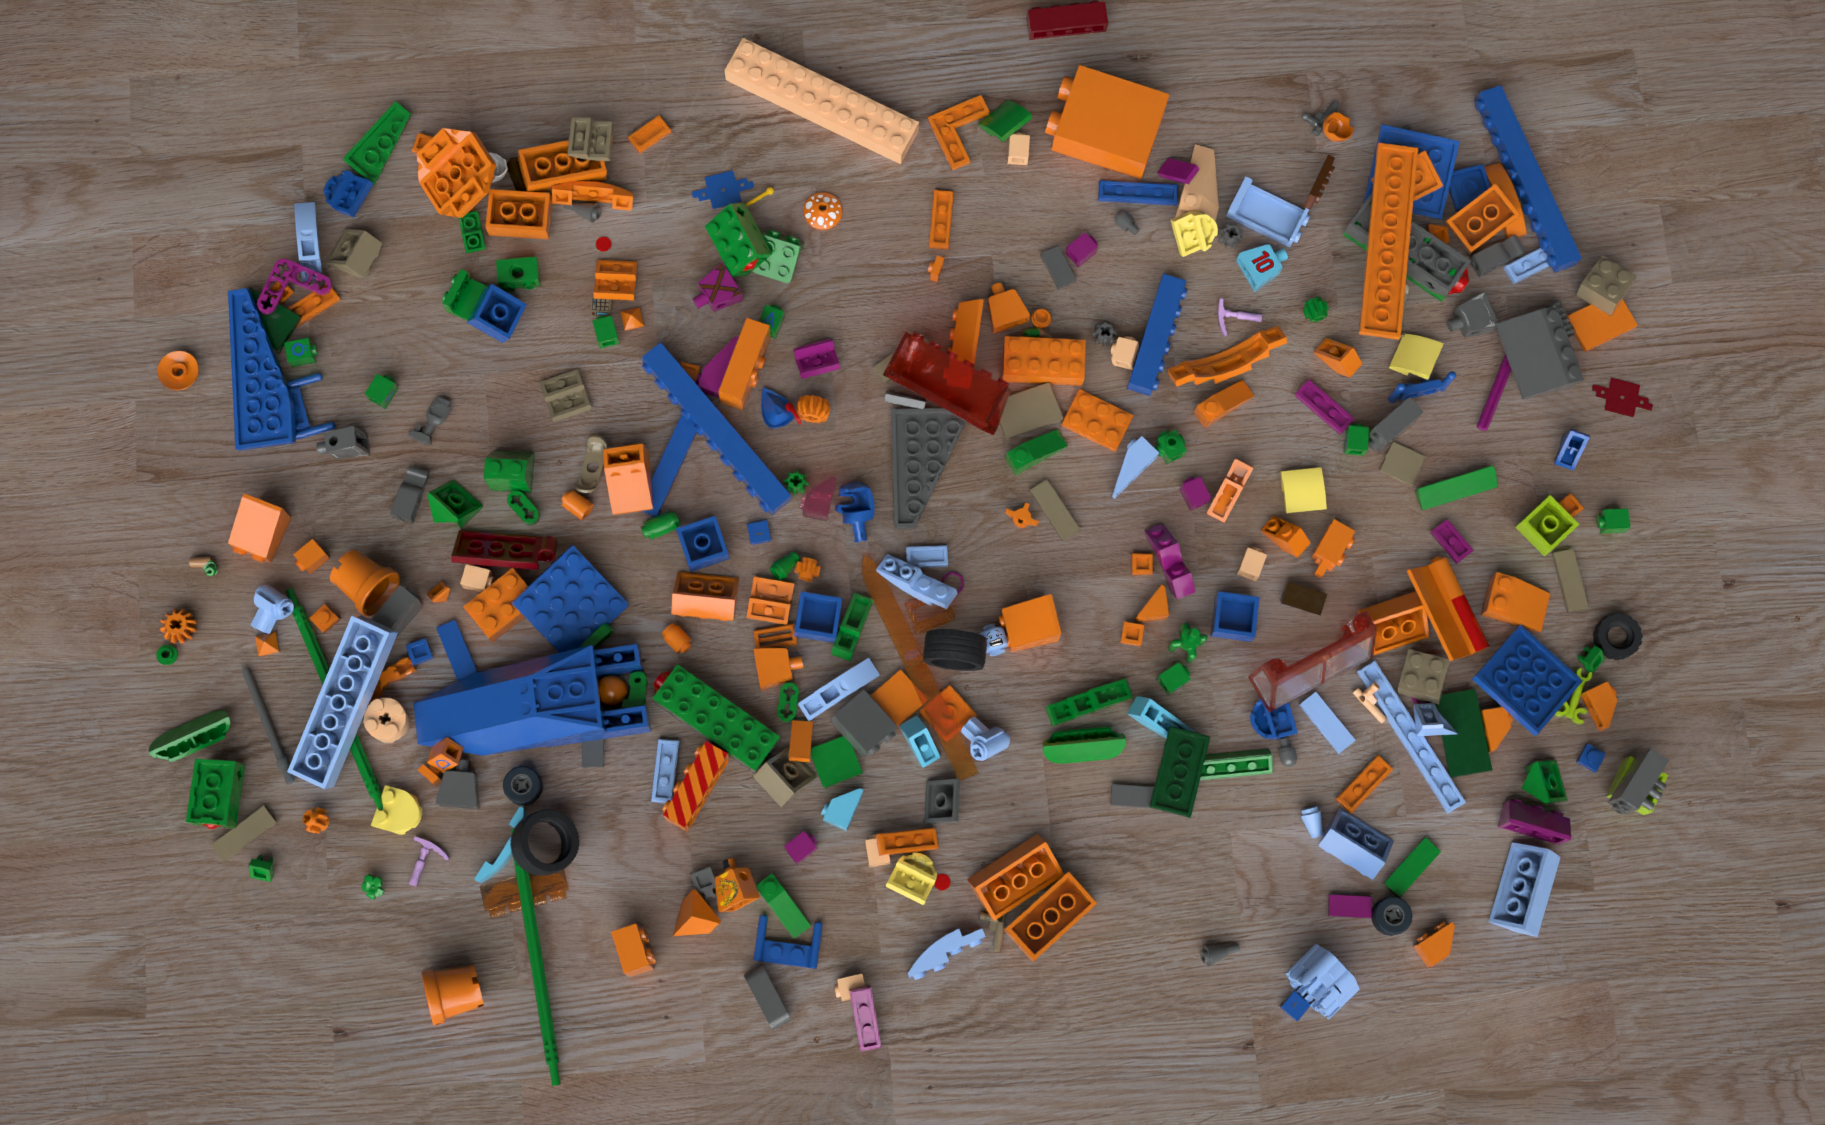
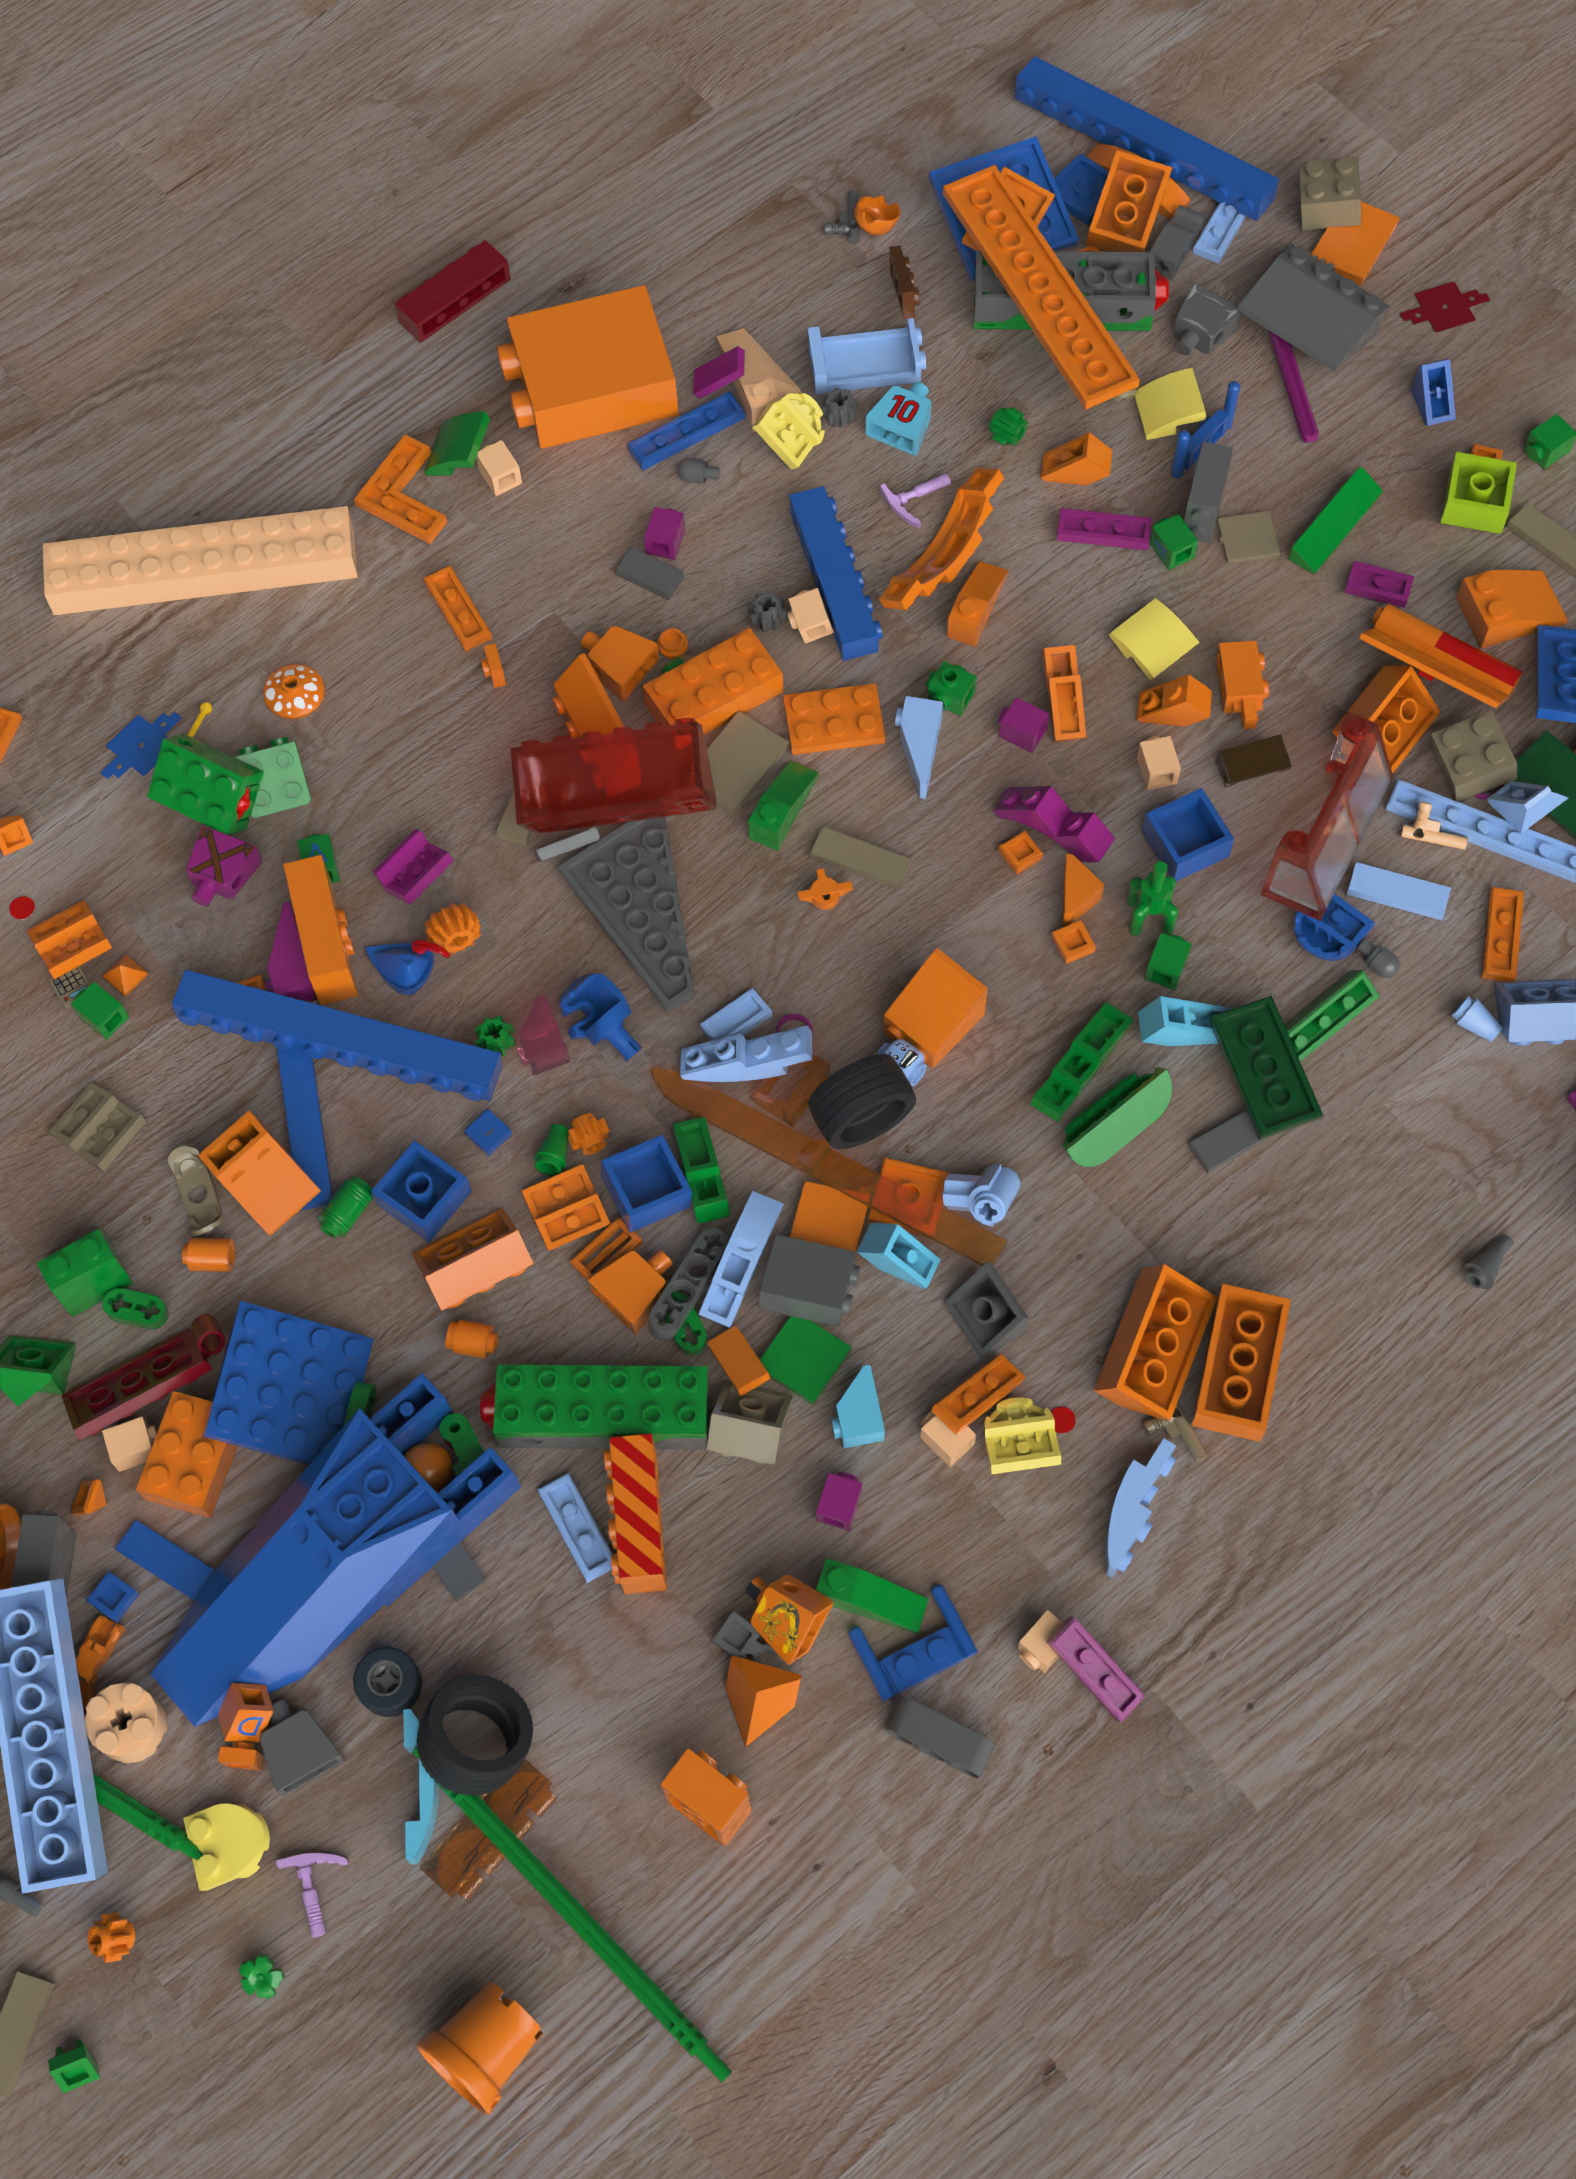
camera: 25 degrees left, 10 degrees down
(801, 681) = (685, 1281): none -> dark grey beam

